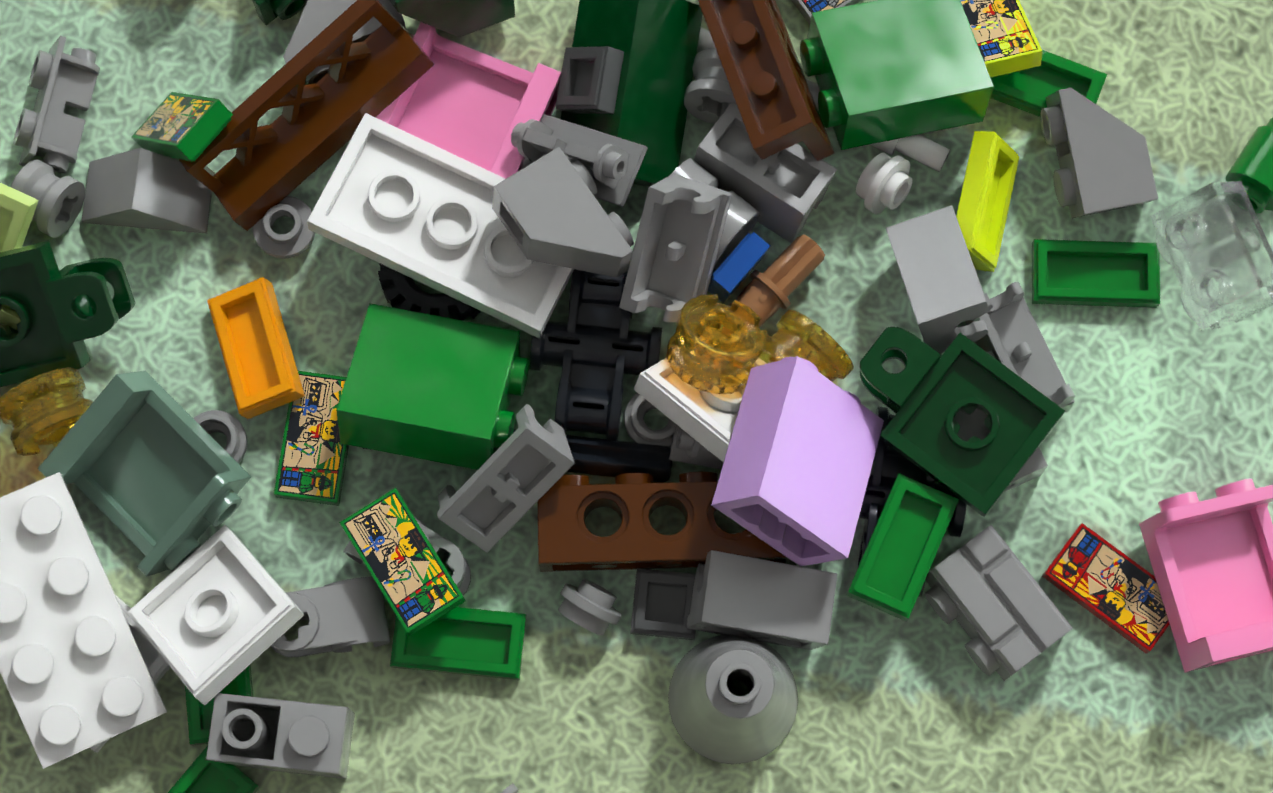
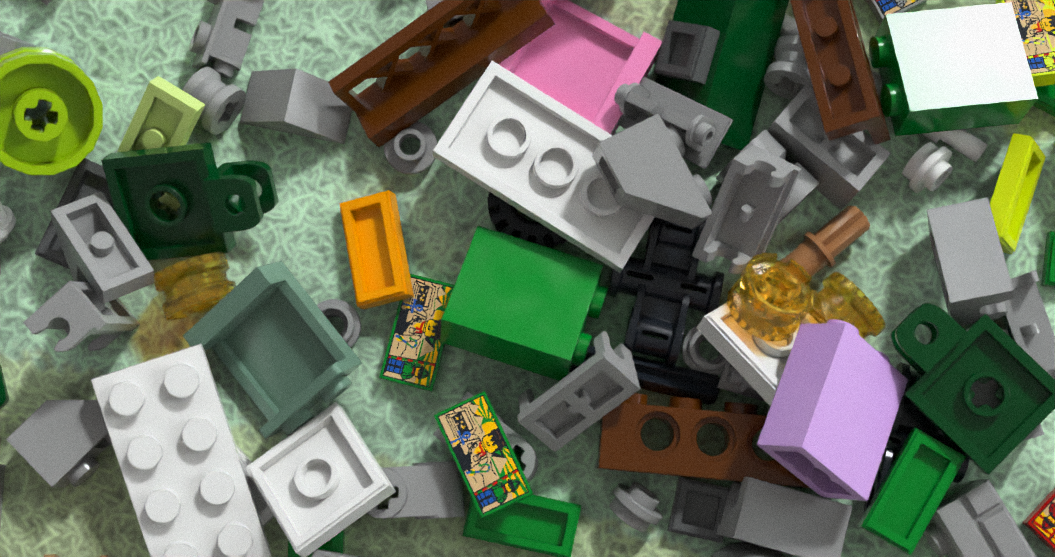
camera: 10 degrees right, 5 degrees up
(183, 126) = (334, 52): tile -> none
(737, 266) = (795, 226): blue tile -> none

